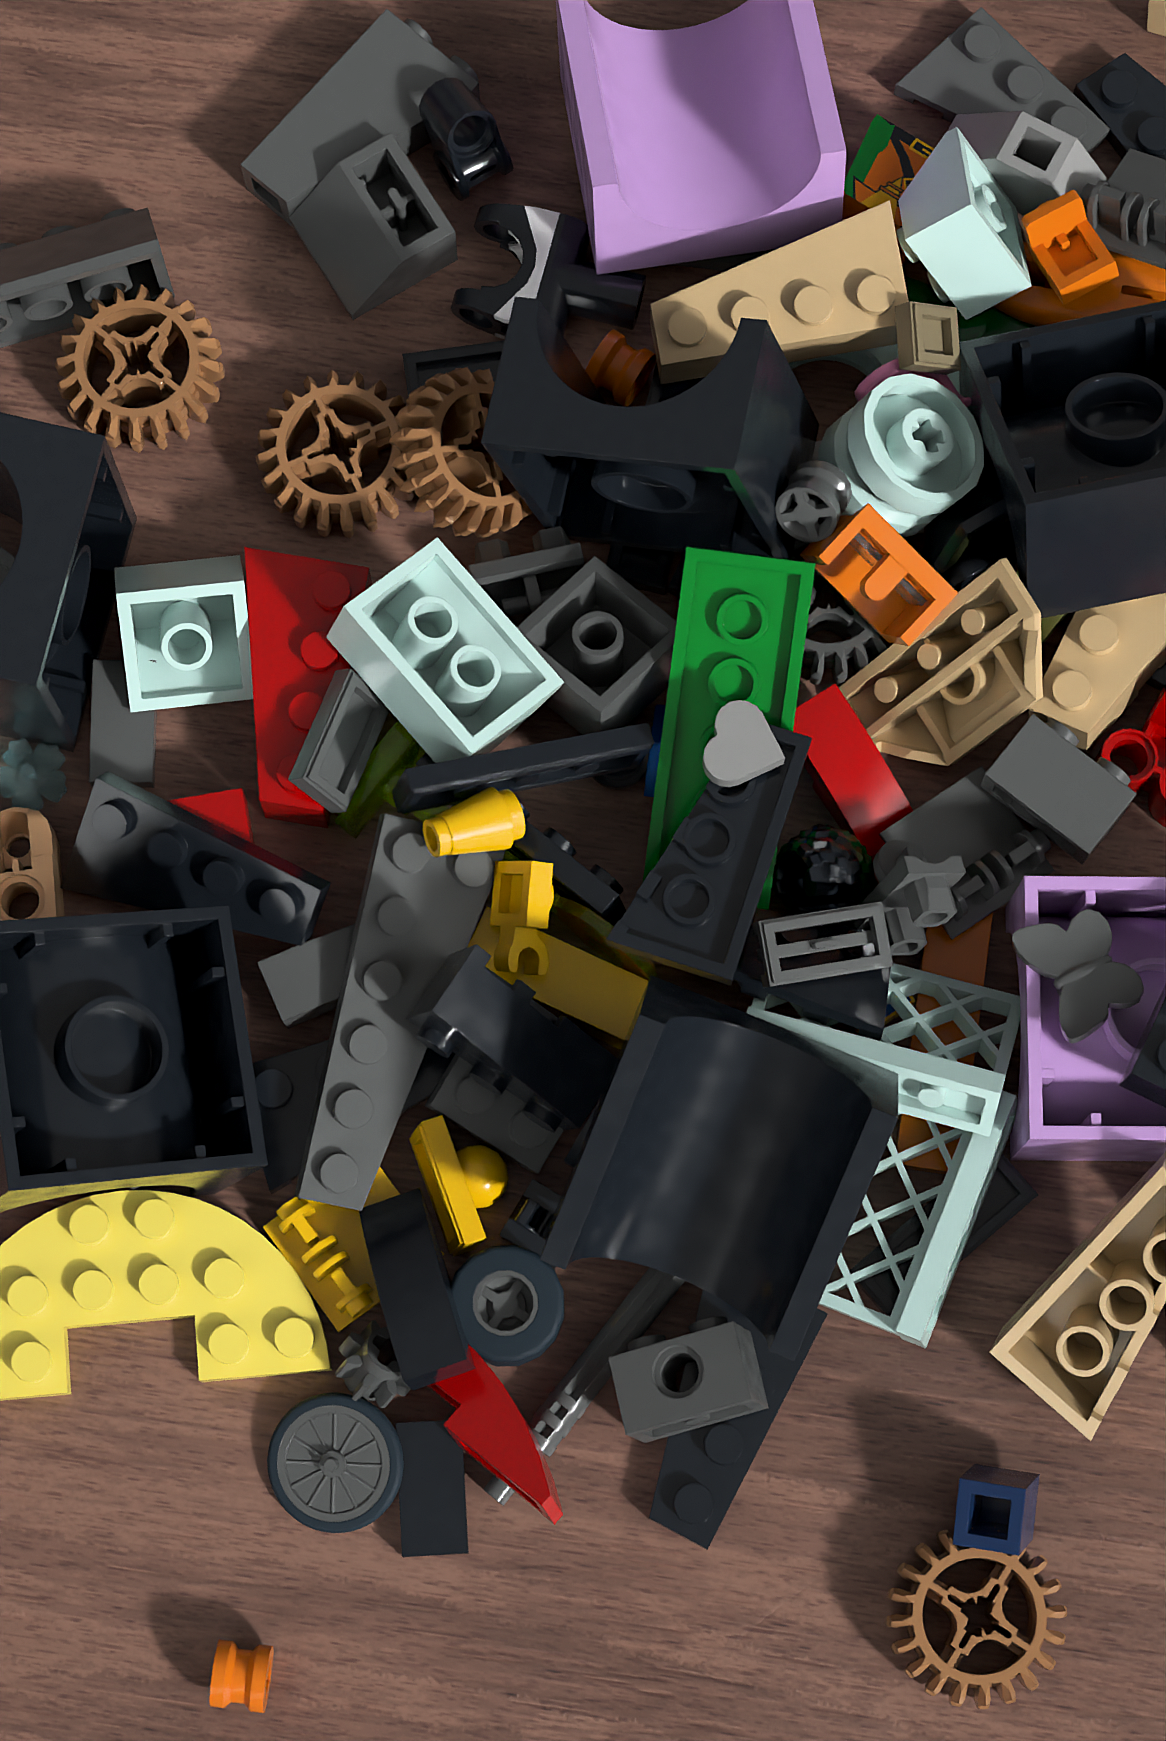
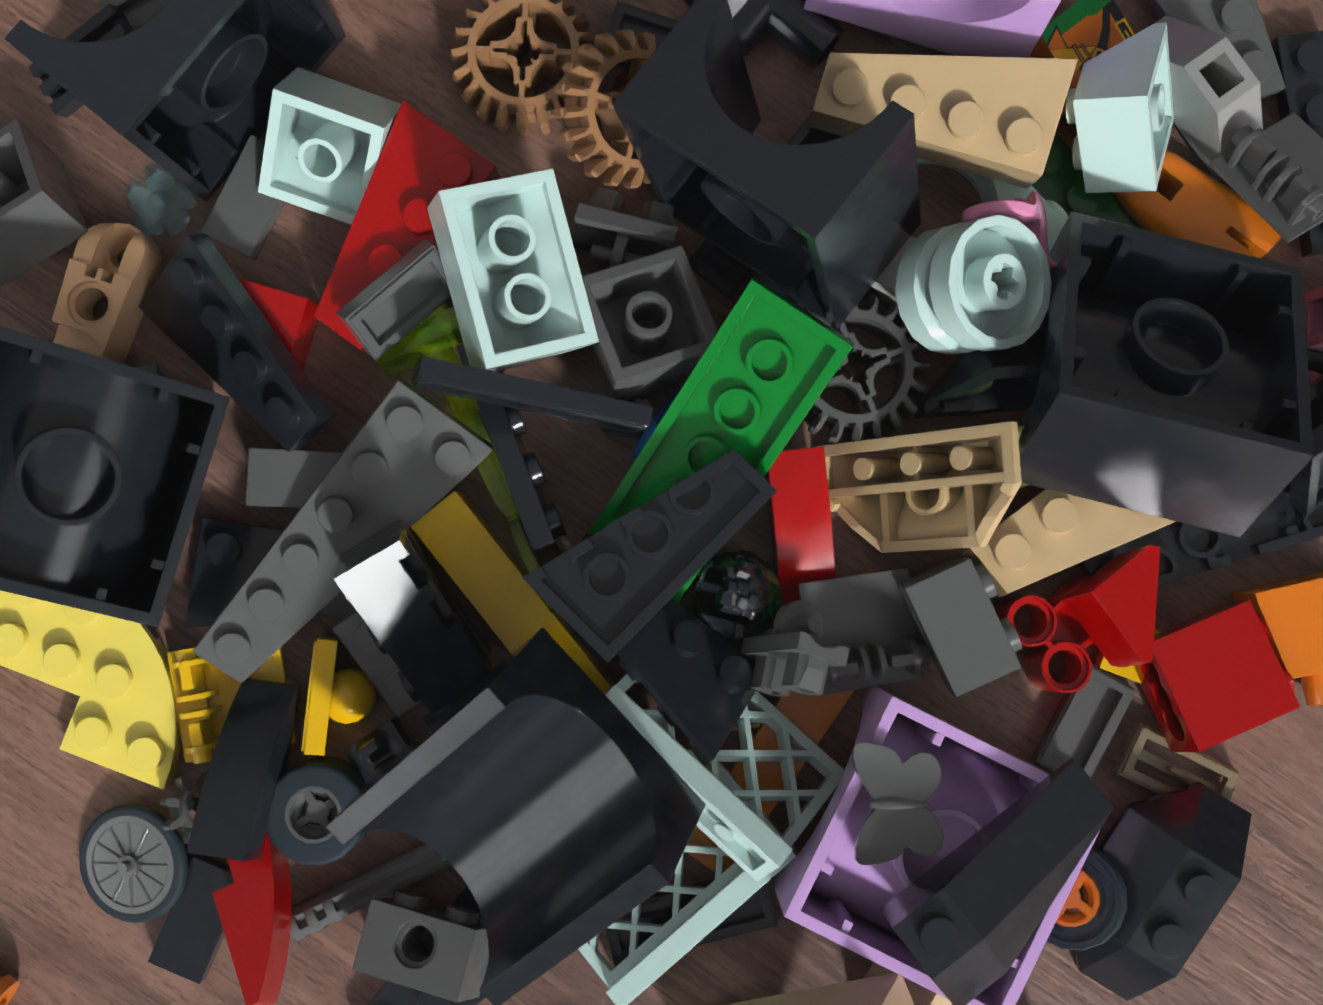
camera: 25 degrees right, 10 degrees up
(476, 825) = (466, 427): yellow cone -> none
(520, 907) = (474, 511): yellow plate -> none
(620, 367) = (784, 96): orange wheel -> none
(741, 745) = (713, 471): light grey tile -> none
(771, 952) = (654, 651): dark grey tile -> none
(803, 513) = (879, 290): dark grey wheel -> none
(881, 576) = (904, 379): orange window -> none
(927, 338) = (1048, 195): dark tan tile -> none
(1067, 247) = (1203, 172): orange bracket -> none

